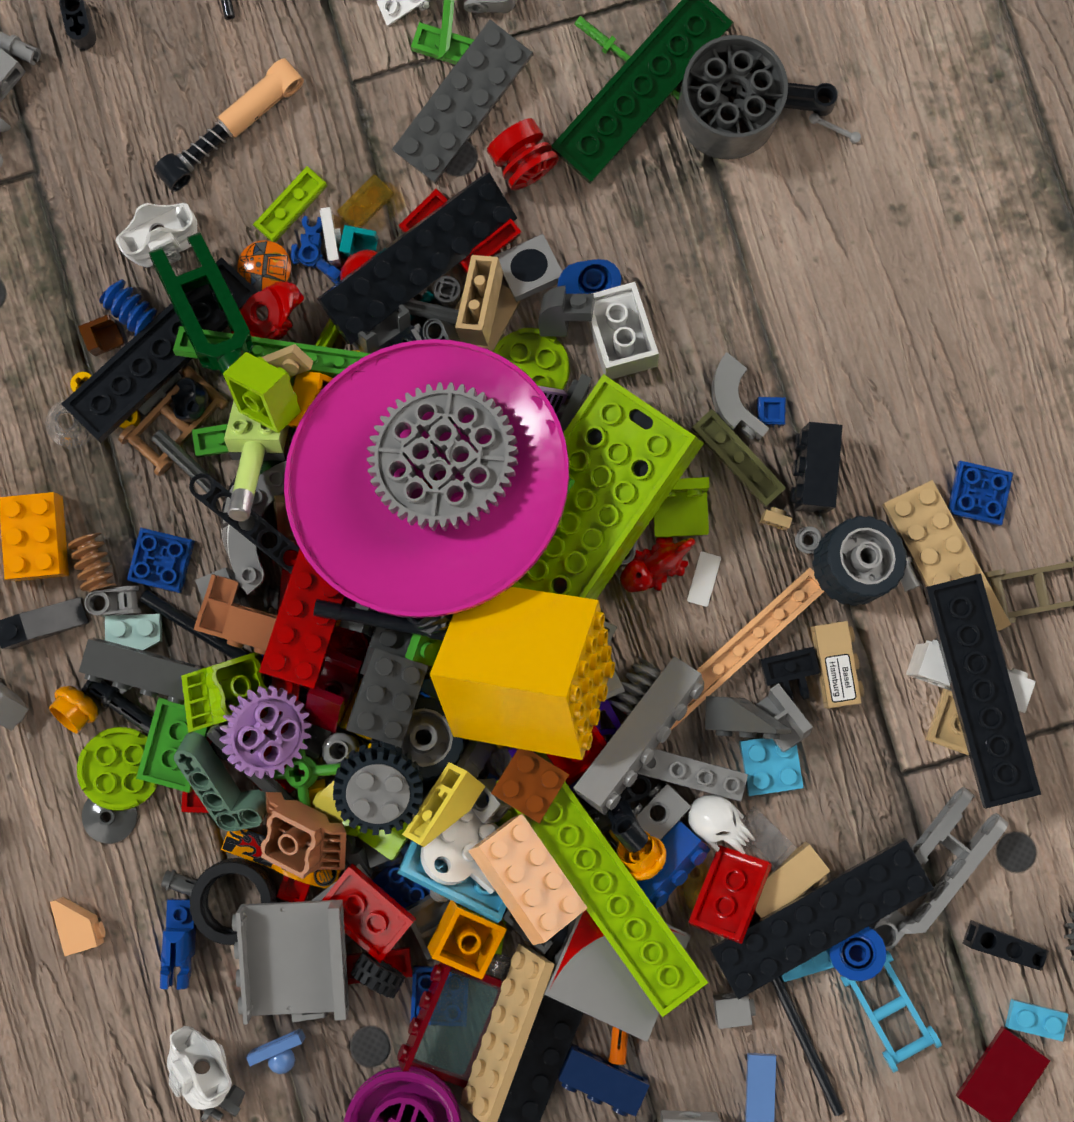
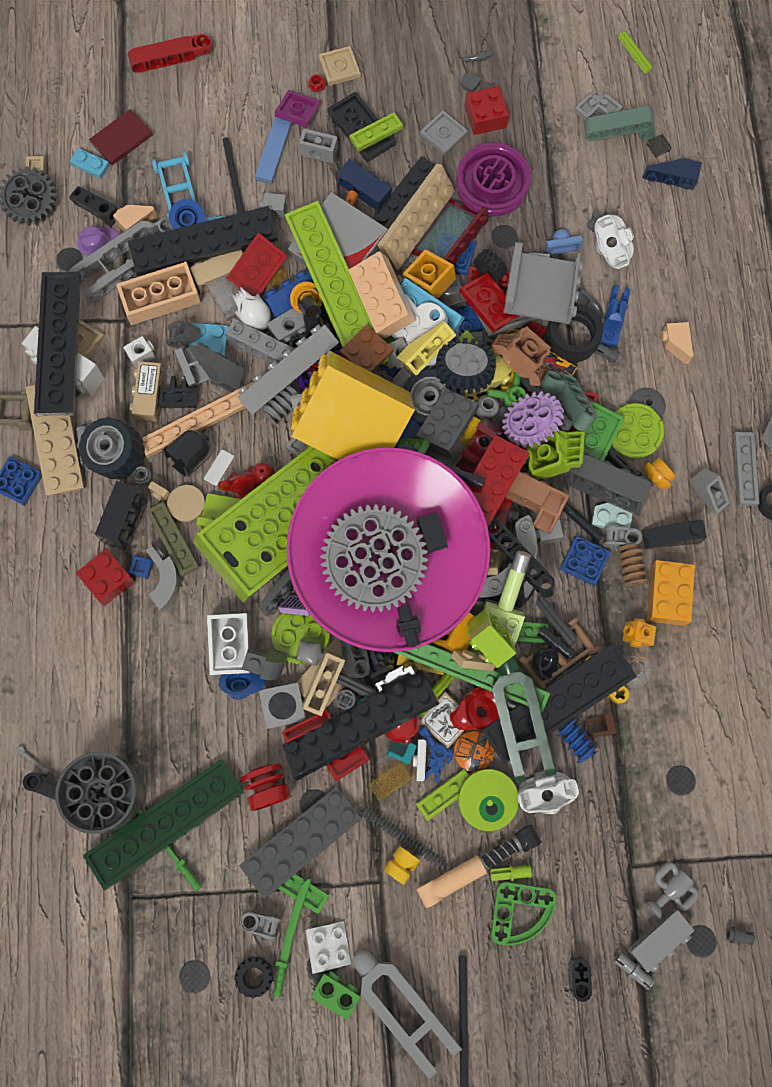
camera: 170 degrees left, 10 degrees down
(68, 469) = (639, 633): none -> light orange brick
(179, 429) = (556, 642): none -> black pin
(183, 91) = (508, 902): none -> bright green beam
(187, 127) = (510, 872): none -> lime axle
(218, 956) = (587, 300): none -> dark grey plate
(233, 208) = (488, 800): none -> lime tile
(310, 312) = (439, 723): none -> tile
(326, 105) = (401, 865): none -> yellow wheel
(333, 140) = (381, 822): none -> dark grey piece
(370, 511) = (432, 532): none -> black beam
(376, 381) = (408, 626): none -> black axle
(508, 340) = (309, 653): none -> light grey piece
(734, 514) = (186, 503): none -> tan tile
(750, 585) = (188, 451): none -> black cylinder
(810, 764) = (182, 334): none -> dark grey piece
(814, 382) = (105, 577): none -> red brick
(865, 819) = (158, 293): none -> light nougat brick
(877, 719) = (132, 348): none -> white brick
(940, 940) = (132, 214): none -> light nougat slope
(984, 892) = (94, 238): none -> medium lavender piece

